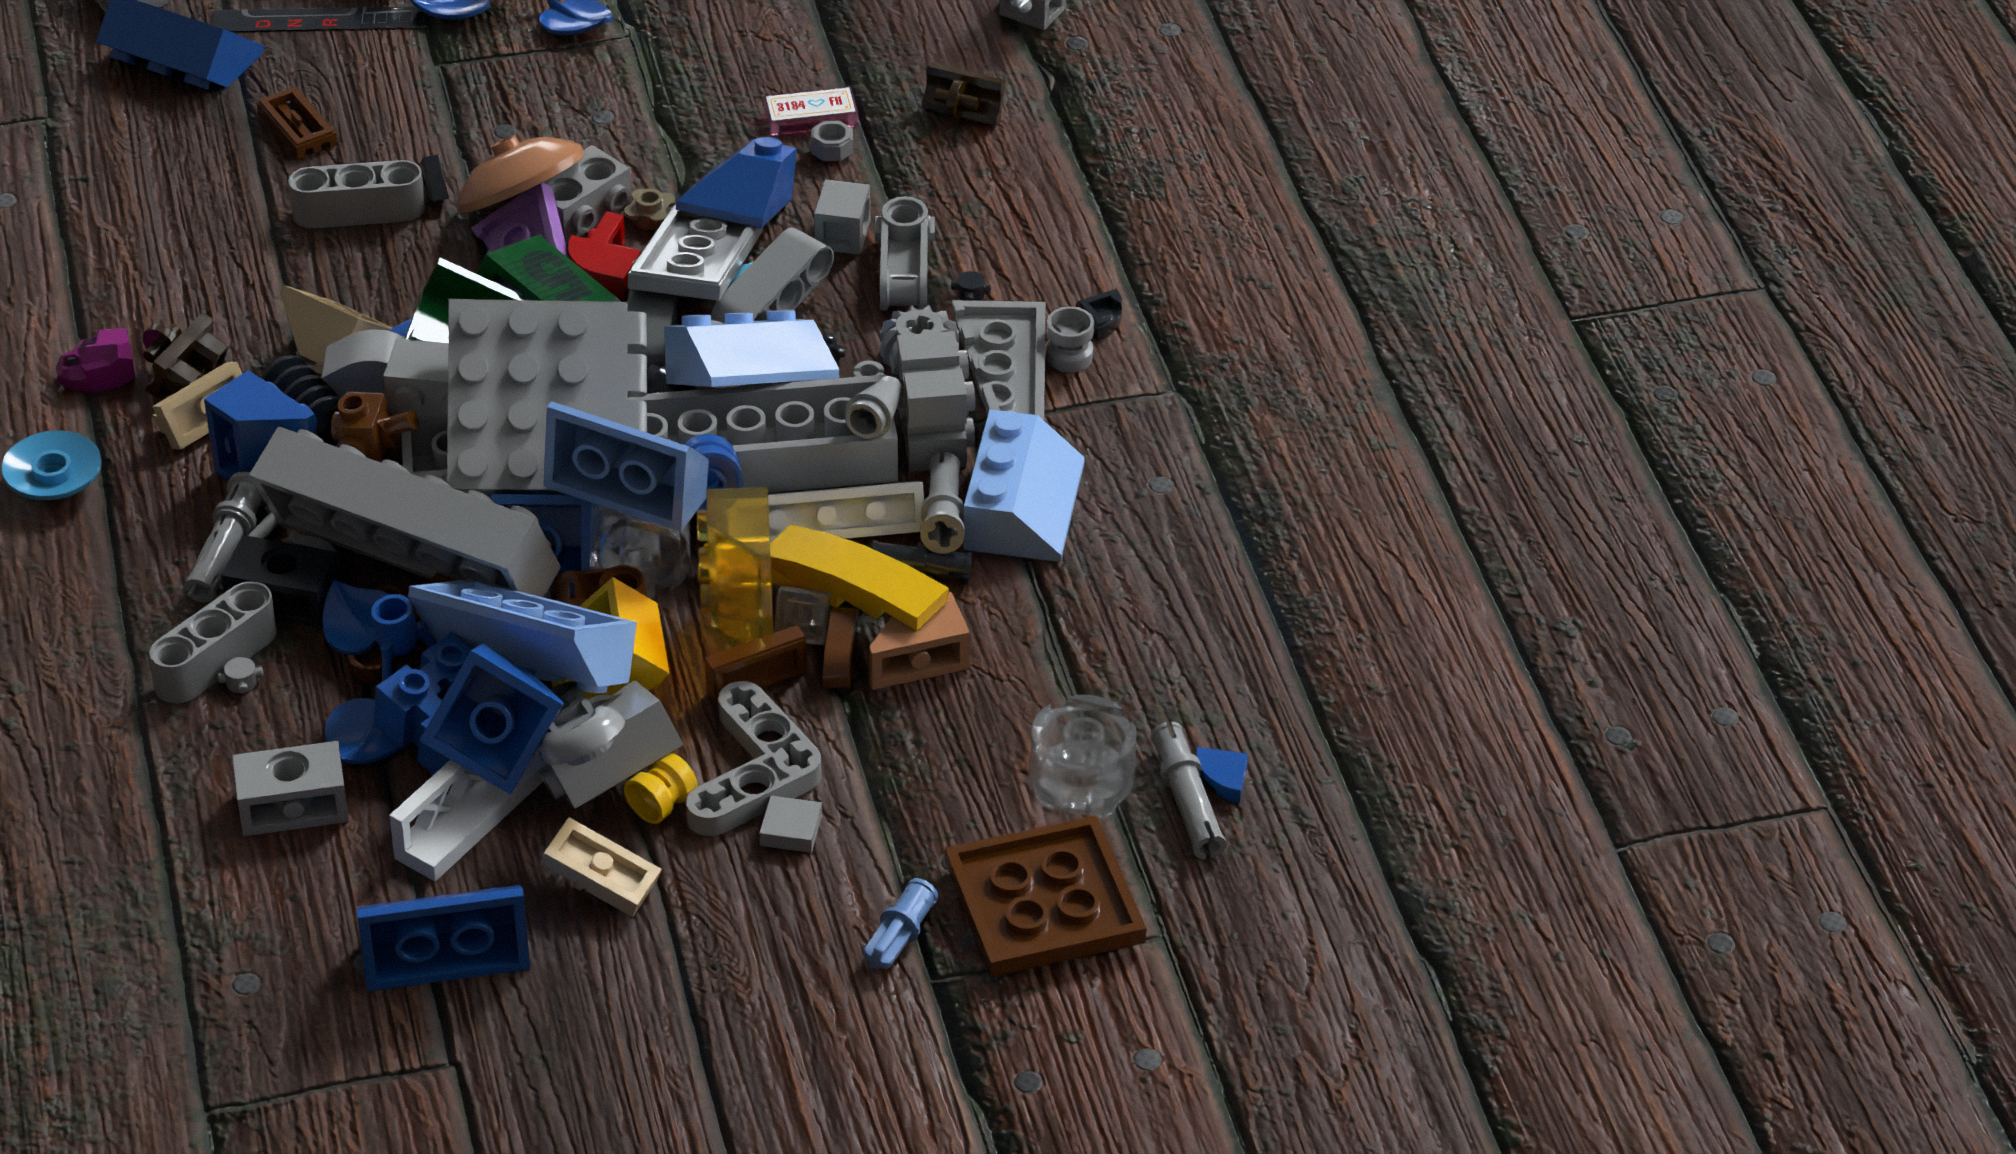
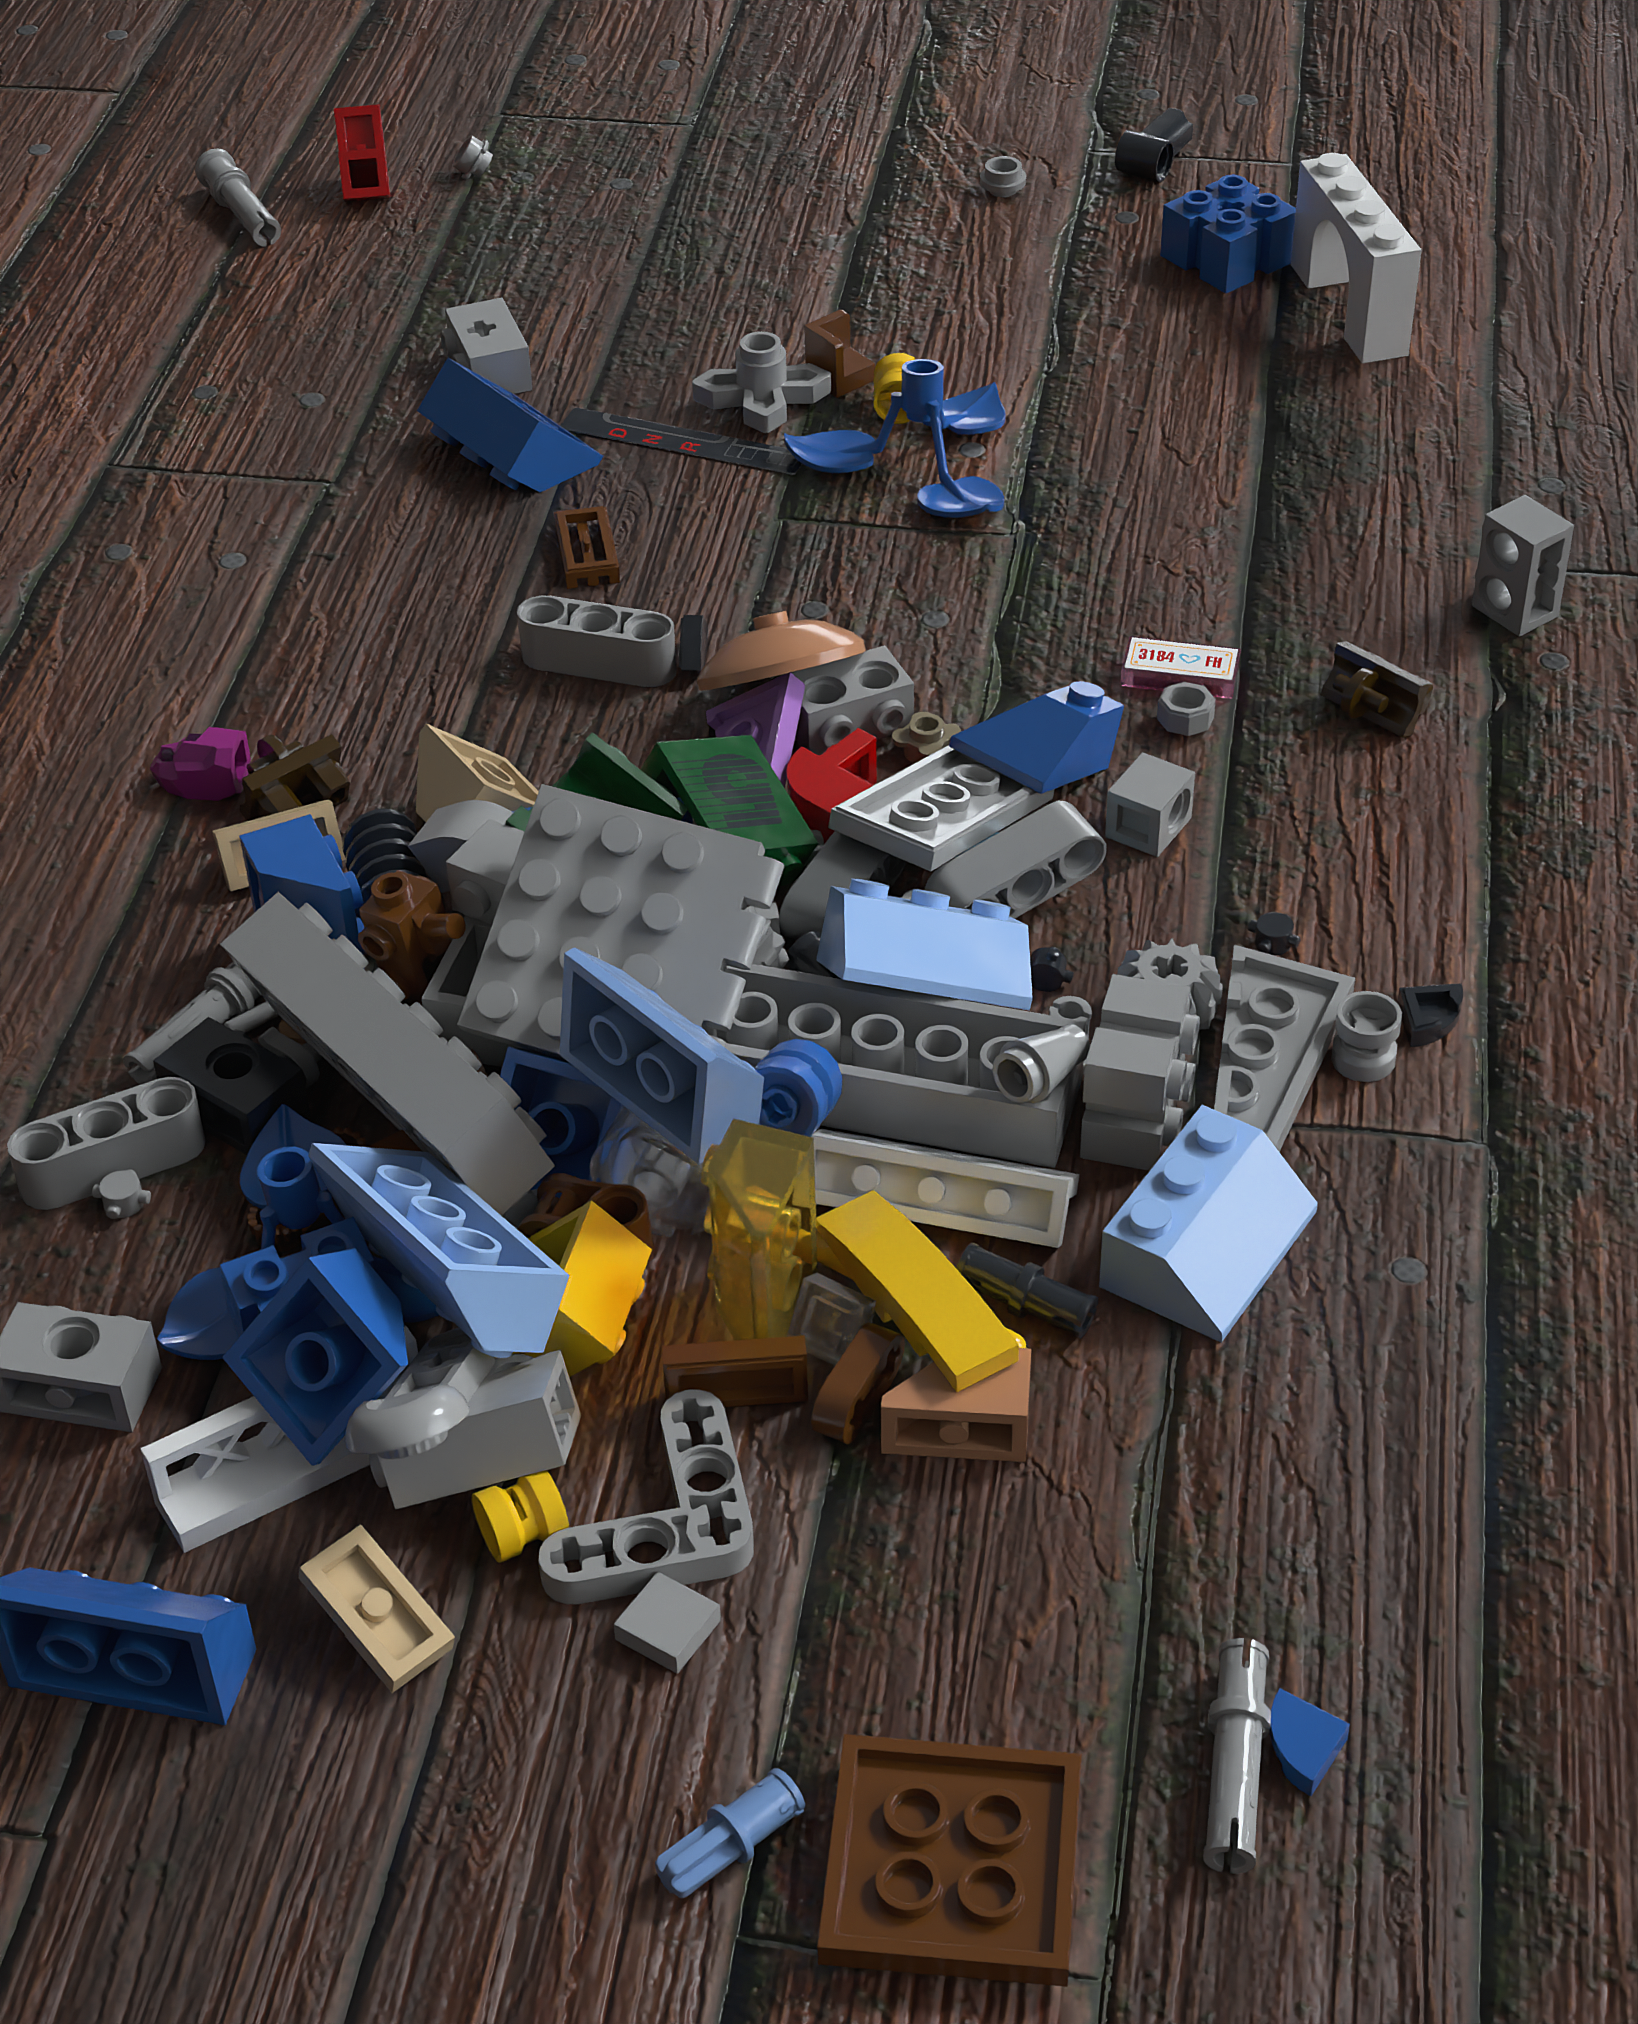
camera: 25 degrees right, 0 degrees up
(51, 465) = (70, 872): dark azure dish -> none
(904, 240) = (1203, 870): light grey piece -> none
(943, 509) = (1075, 1229): light grey pin -> none
(1083, 756) = (1101, 1654): clear brick -> none

